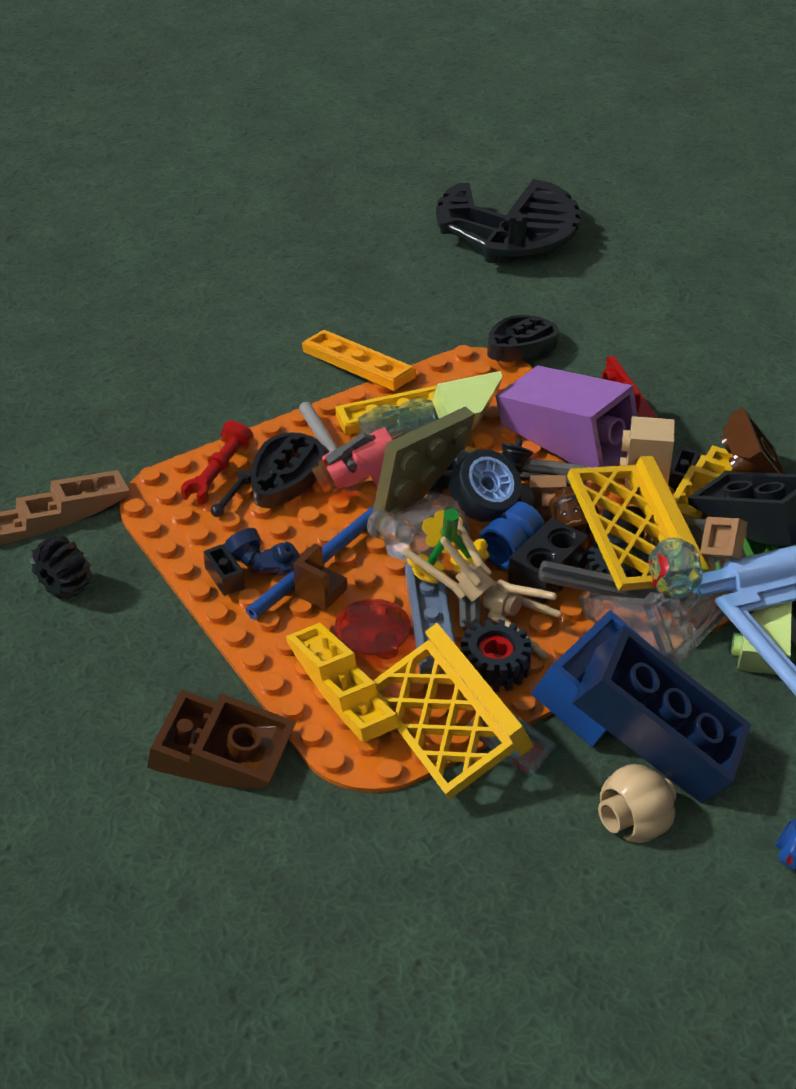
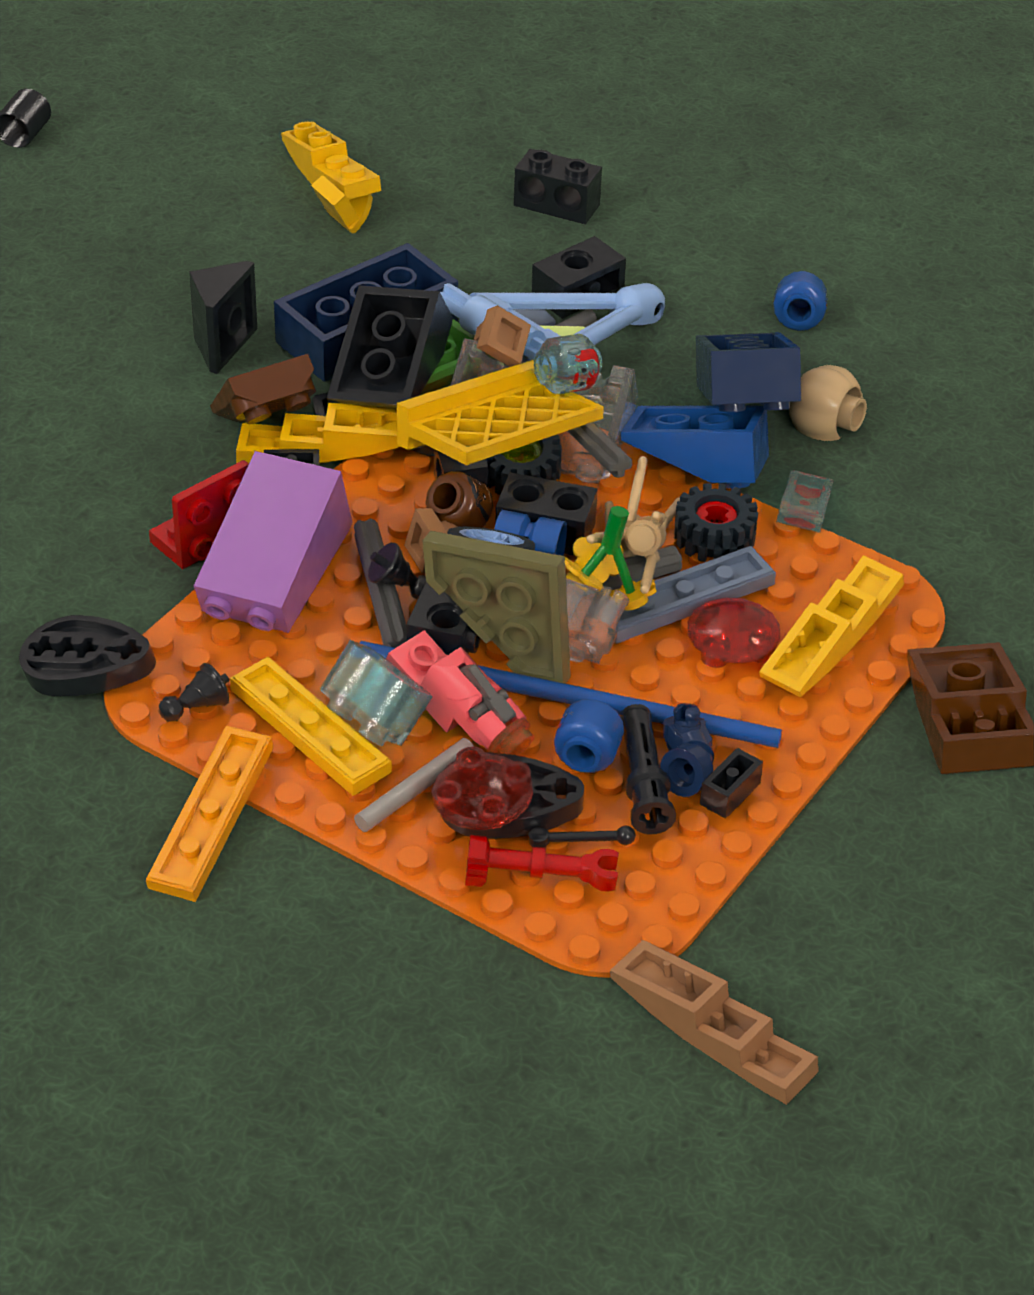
camera: 115 degrees left, 0 degrees up
(61, 567) = (836, 933): black gear -> none
(231, 522) = (647, 782): none -> black pin
(277, 438) = (482, 790): none -> clear red dish
(301, 506) = (589, 736): none -> blue head
(316, 582) = (700, 686): reddish brown panel -> none
(454, 367) = (204, 690): none -> black piece
(472, 392) = (292, 639): yellowish green slope -> none
(478, 697) = (807, 493): yellow fence -> none
(649, 438) = (339, 444): tan brick -> none

